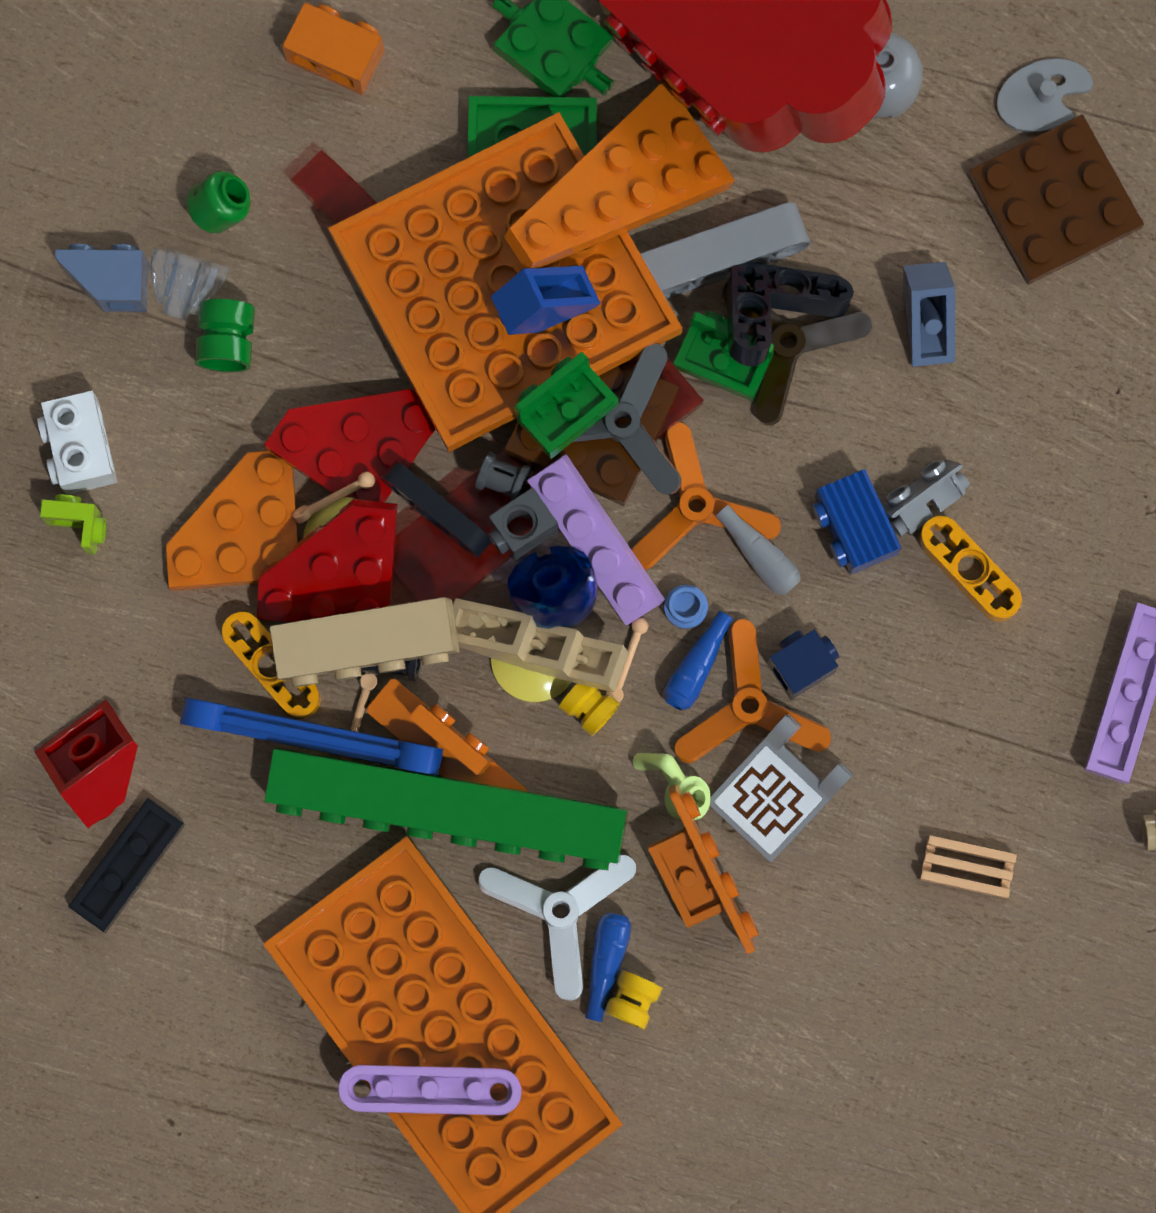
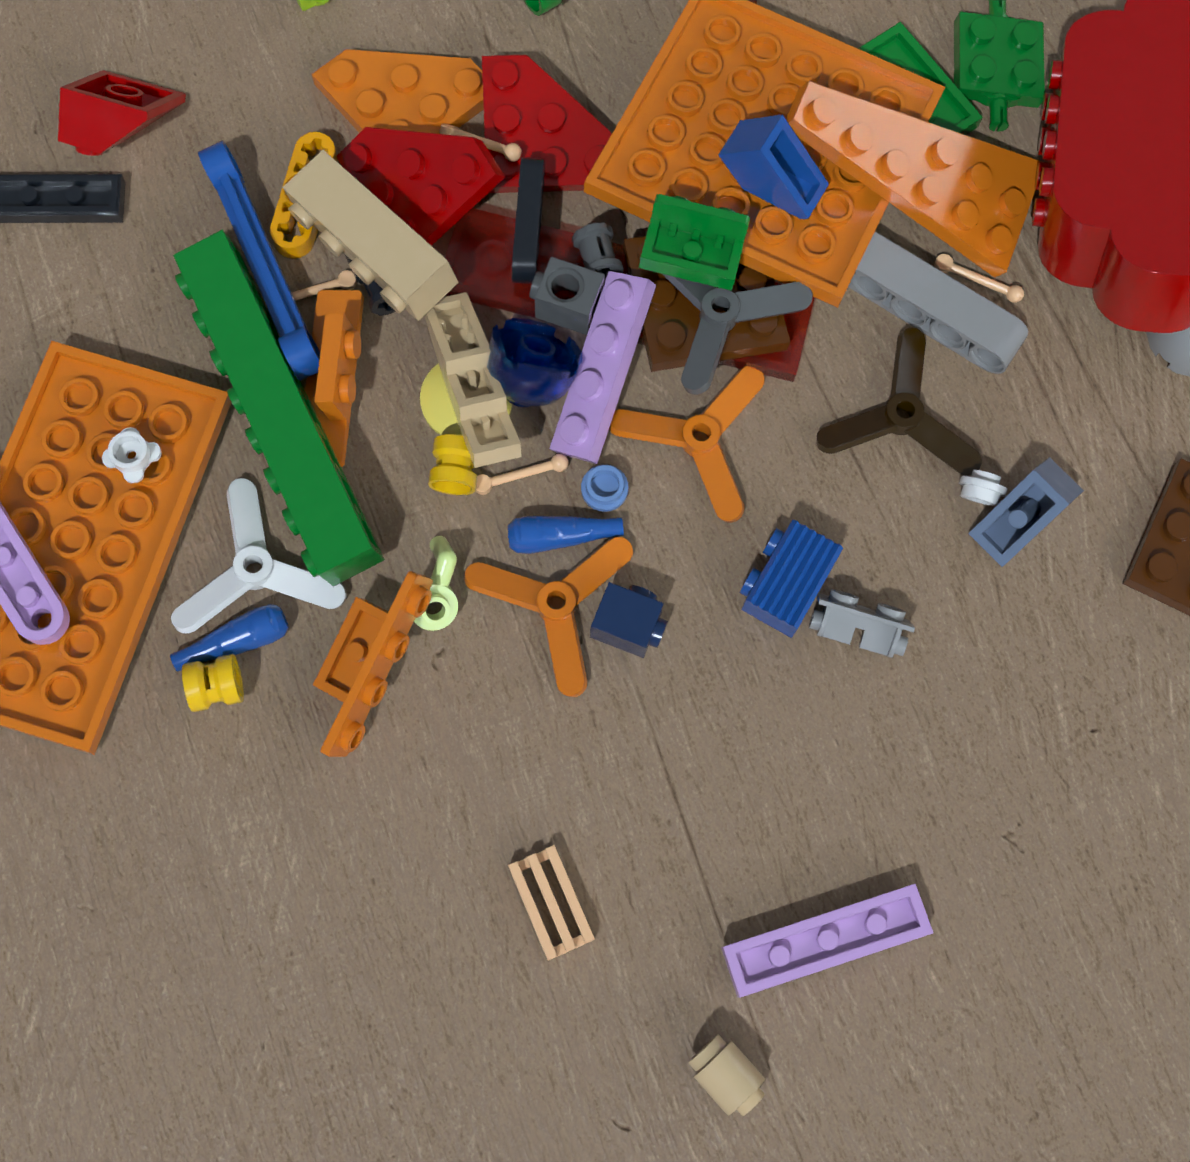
camera: 50 degrees right, 5 degrees down
(400, 934) = (131, 441): none -> white plate
(689, 216) = (945, 264): none -> light nougat hinge
(707, 357) = (850, 366): green bracket -> none
(765, 558) = (698, 526): light grey piece -> none
(768, 294) = (962, 404): black beam -> none
(775, 793) = (492, 678): flag -> none
(888, 331) = (982, 488): none -> white plate
(1000, 585) = (821, 672): light orange beam -> none

